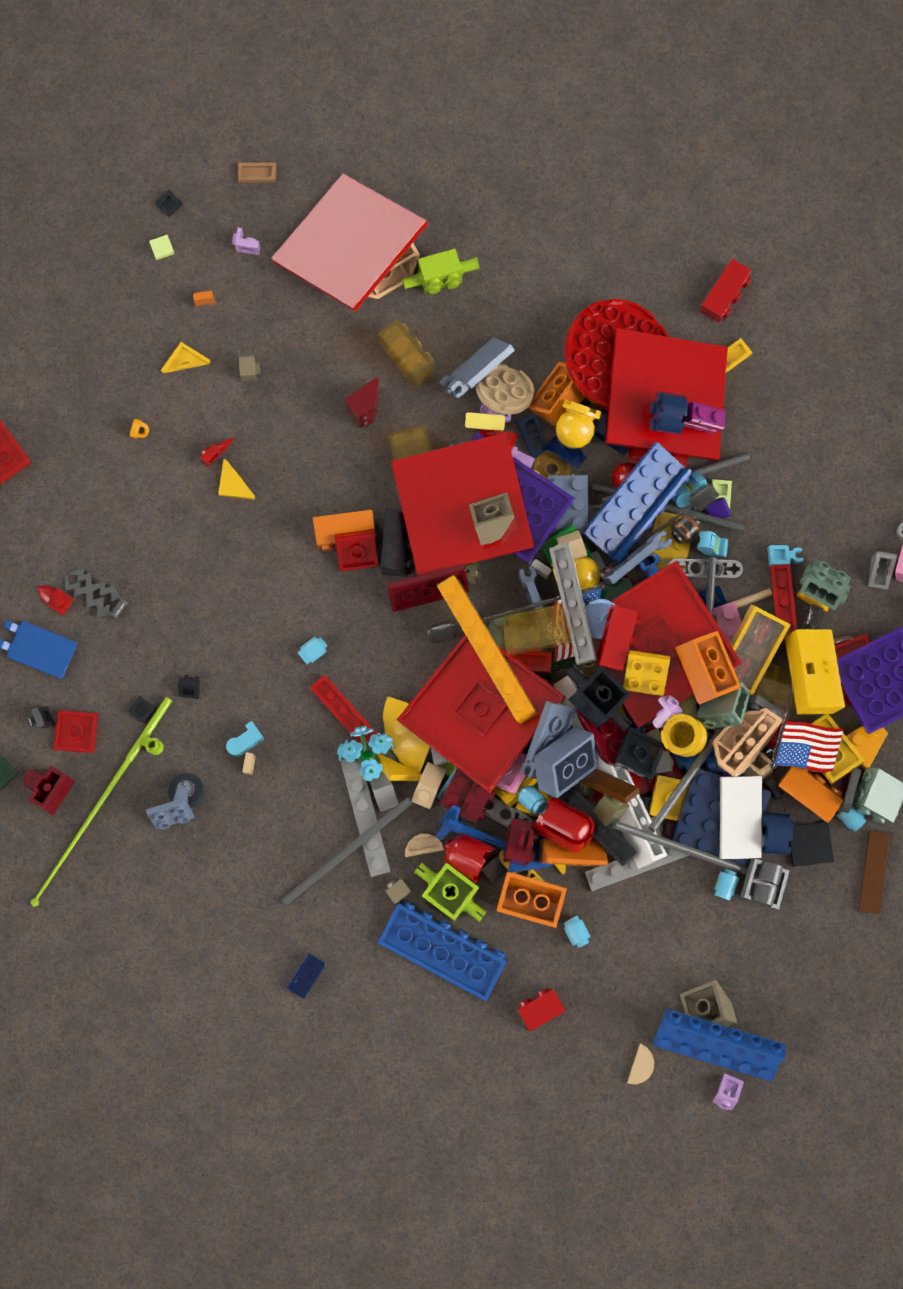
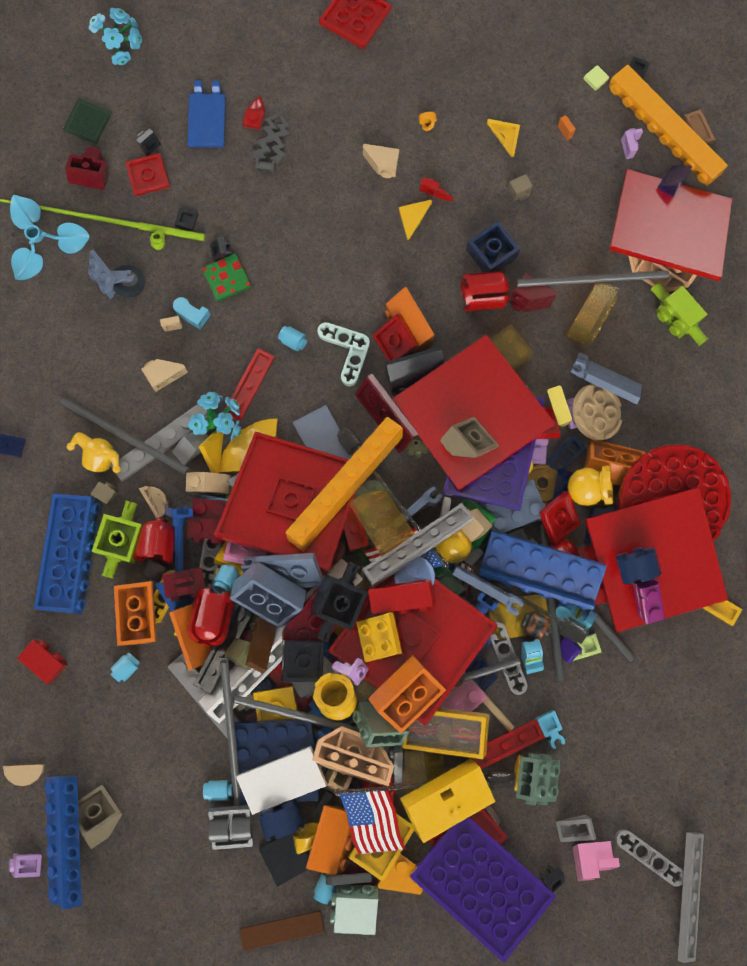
camera: 65 degrees right, 0 degrees up
(123, 887) = (25, 213): none -> medium azure plant
(162, 490) = (382, 159): none -> tan slope
(221, 692) = (226, 277): none -> green tile
(242, 202) = (667, 125): none -> light orange brick
(296, 791) = (162, 372): none -> tan slope
(301, 218) = (674, 179): none -> slope
(302, 420) = (492, 248): none -> dark blue brick
(342, 445) = (484, 291): none -> red cylinder
(348, 595) = (354, 350): none -> light aqua beam
(354, 885) = (96, 453): none -> yellow piece
(377, 339) = (592, 278): none -> dark grey piece
(420, 658) = (320, 432): none -> sand blue tile
(593, 466) = (559, 518): none -> red tile
(800, 815) = (305, 837): none -> yellow piece

